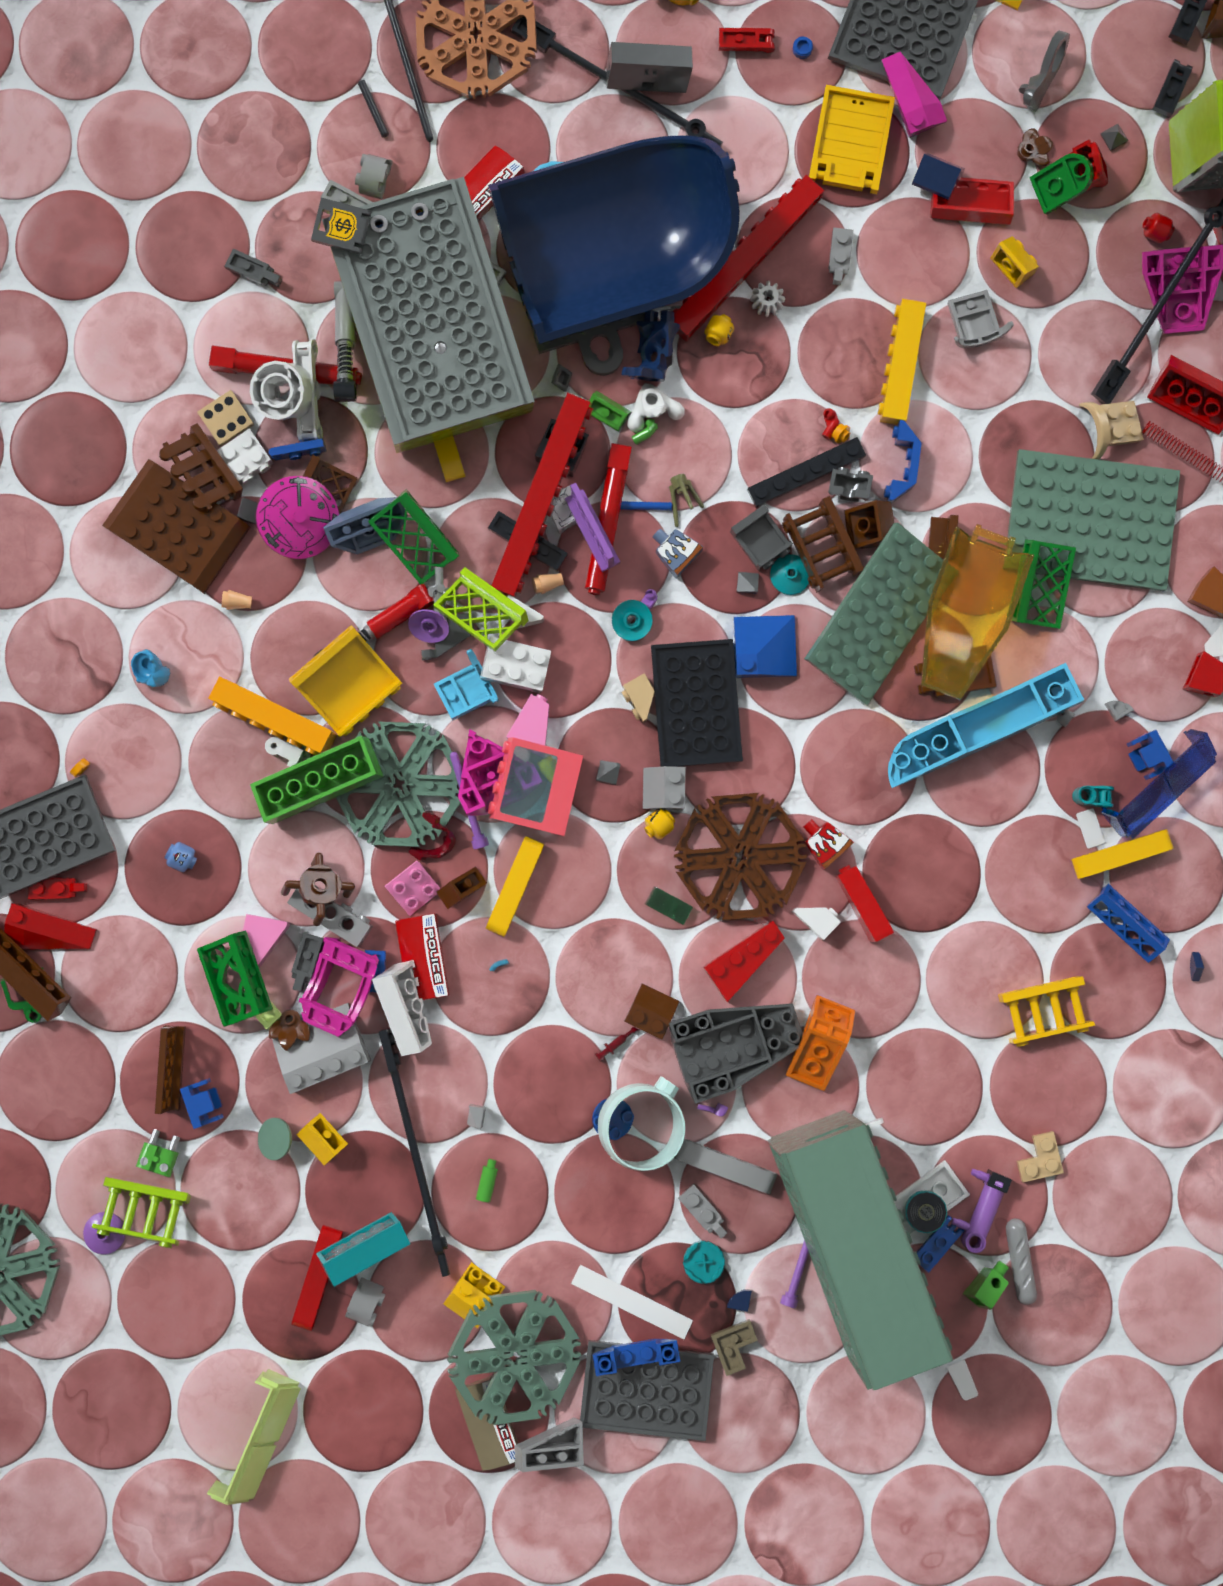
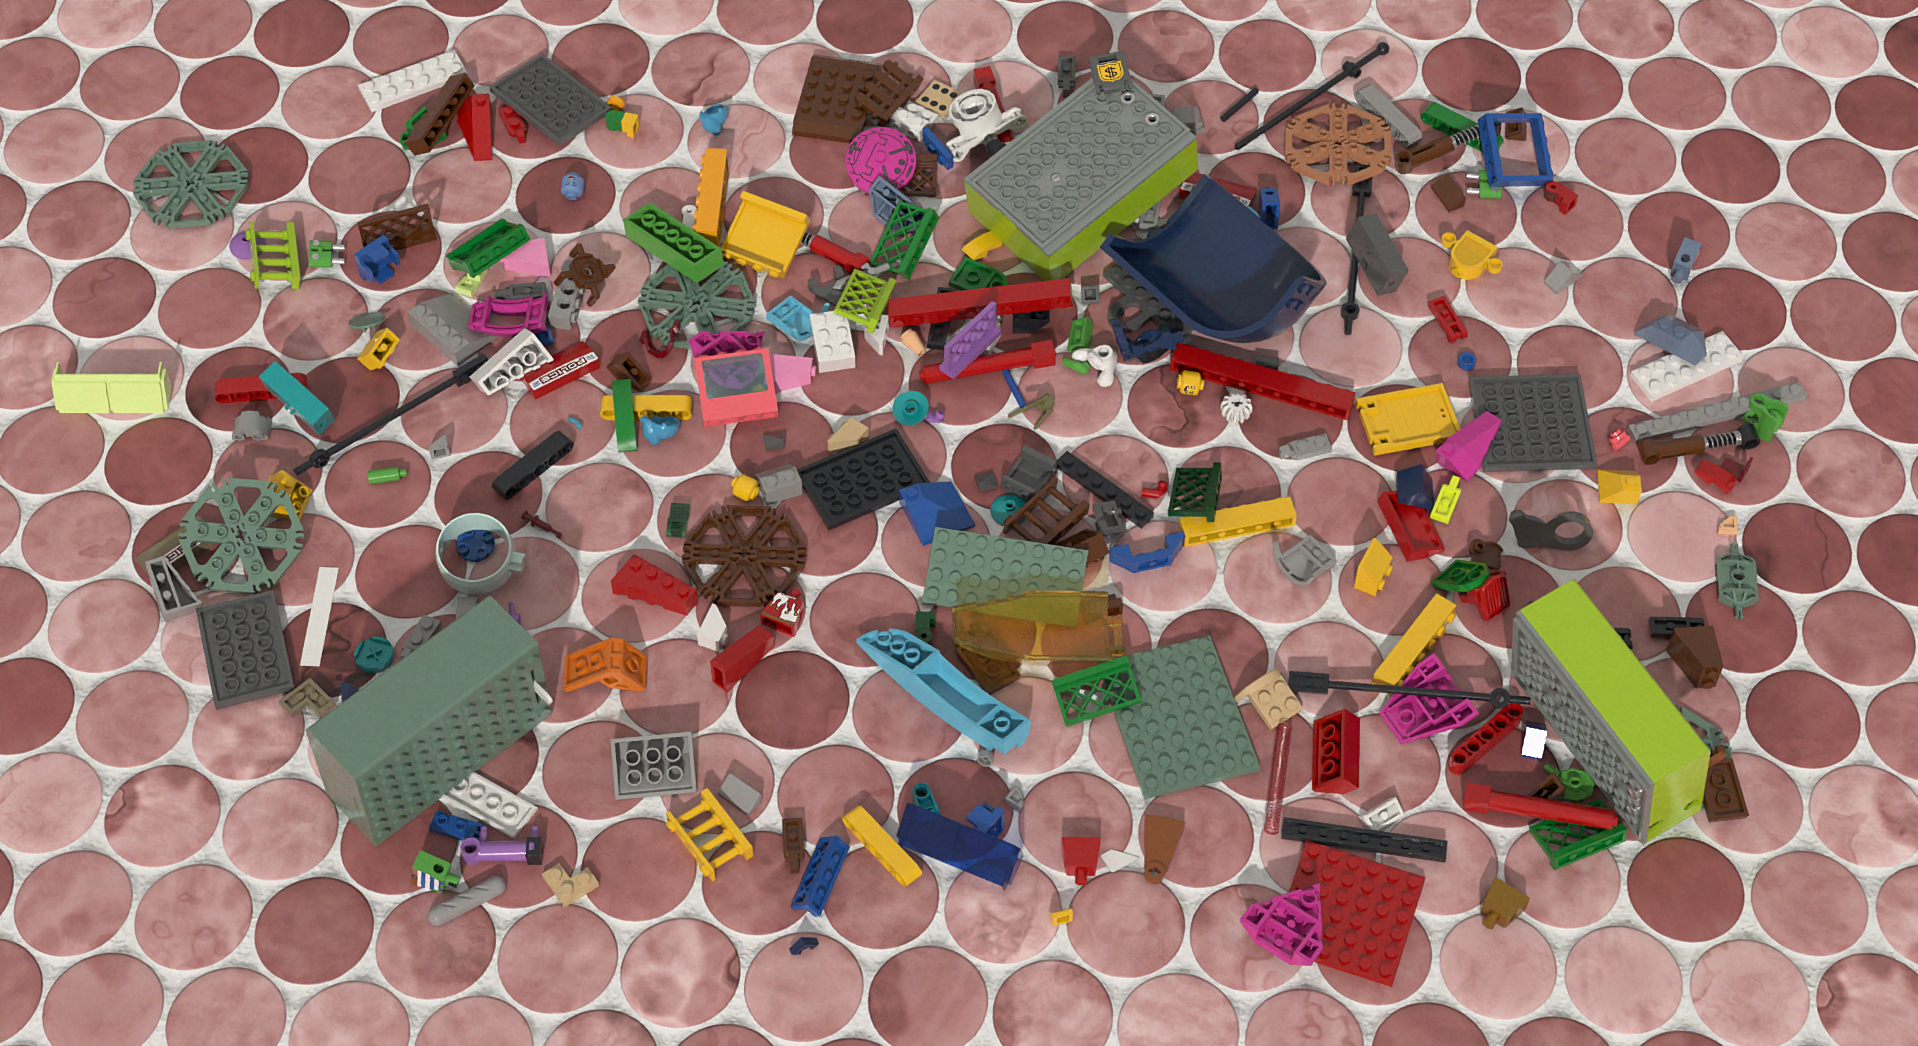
camera: 70 degrees right, 30 degrees down
(109, 769) = (623, 122): none -> leg
(235, 600) = (795, 150): light nougat cone -> none
(289, 1032) = (462, 299): reddish brown plate -> none
(413, 888) = (614, 339): bright pink hinge -> none
(428, 626) = (835, 271): medium lavender dish -> none
(479, 839) = (674, 370): medium lavender piece -> none
(490, 482) = (976, 276): none -> green tile
(518, 913) = (624, 415): none -> green slope
(531, 144) = (1269, 201): none -> blue torso
(539, 1027) = (532, 465): none -> black beam
(549, 880) = (658, 428): none -> dark azure hair
(636, 1353) = (270, 617): blue slope -> none
(651, 1011) = (579, 537): reddish brown slope -> none
(676, 550) = (985, 420): torso -> none
(732, 1045) = (574, 598): dark grey wedge -> none
(841, 433) = (1150, 499): light orange plate -> none
(867, 370) = (1209, 492): none -> dark green fence
(900, 717) = (924, 621): none -> dark green leg
(925, 1211) = (484, 804): black tile -> none
(947, 1034) = (653, 765): none -> light grey slope
(961, 151) = (1446, 501): none -> neon yellow hinge
(963, 1380) = (338, 895): white sticker -> none
(1011, 964) = (740, 794): none -> light grey slope
(1084, 934) = (793, 842): none -> reddish brown hinge
(1090, 828) = (892, 818): white sticker -> none
(1109, 264) = (1416, 642): none -> yellow brick
(1158, 227) = (1469, 670): red head -> none

